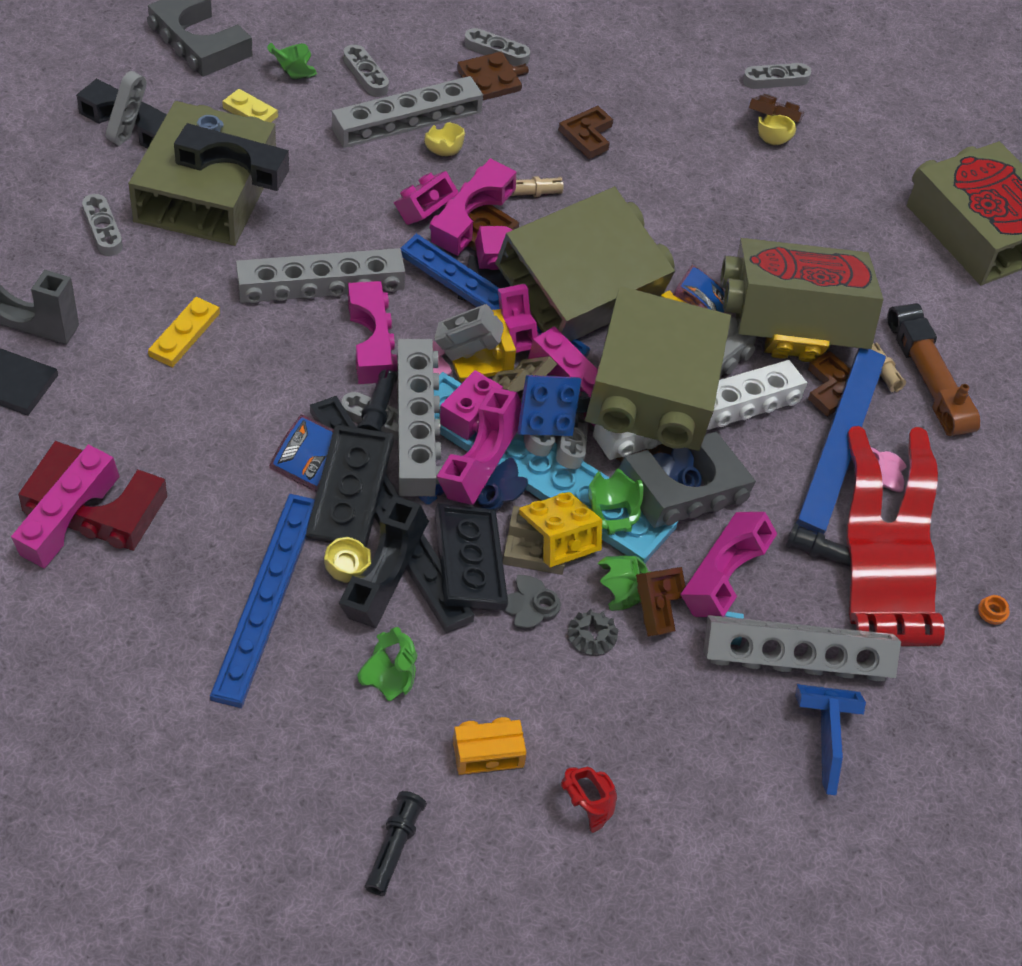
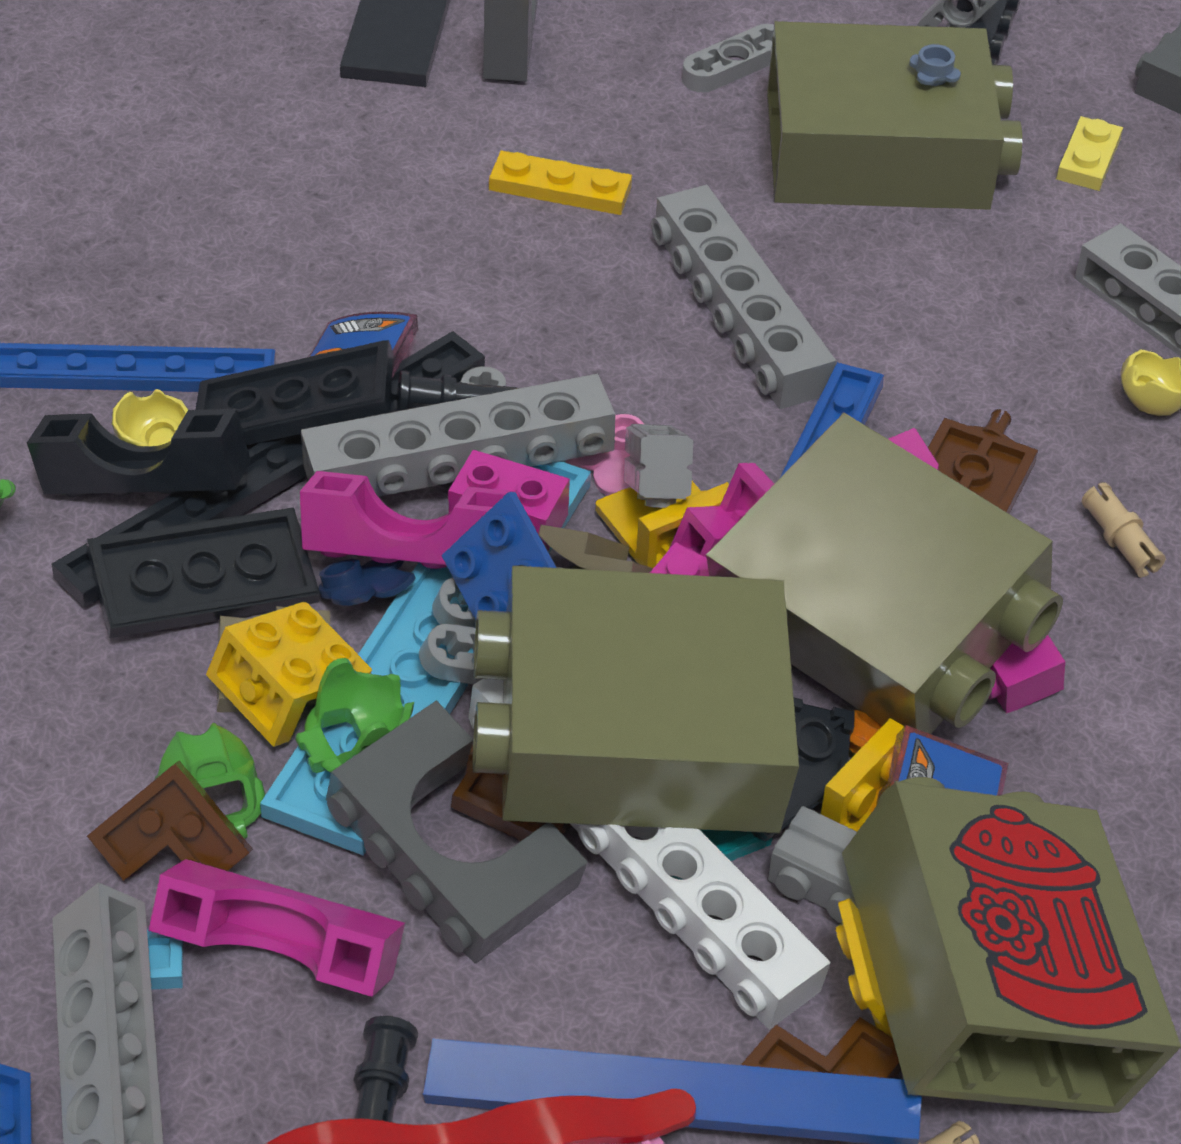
camera: 80 degrees right, 5 degrees down
(45, 527) = (211, 126): dark pink arch -> none
(119, 522) = (187, 116): dark red arch -> none
(202, 147) = (881, 127): black arch -> none
(367, 307) = (701, 362): dark pink arch -> none
(426, 197) = (986, 377): dark pink brick -> none
(489, 186) = (1041, 434): dark pink arch -> none
(527, 602) = (137, 667): dark grey plate -> none
(583, 639) = (80, 781): dark grey gear -> none
(679, 466) = (474, 817): dark blue plate -> none

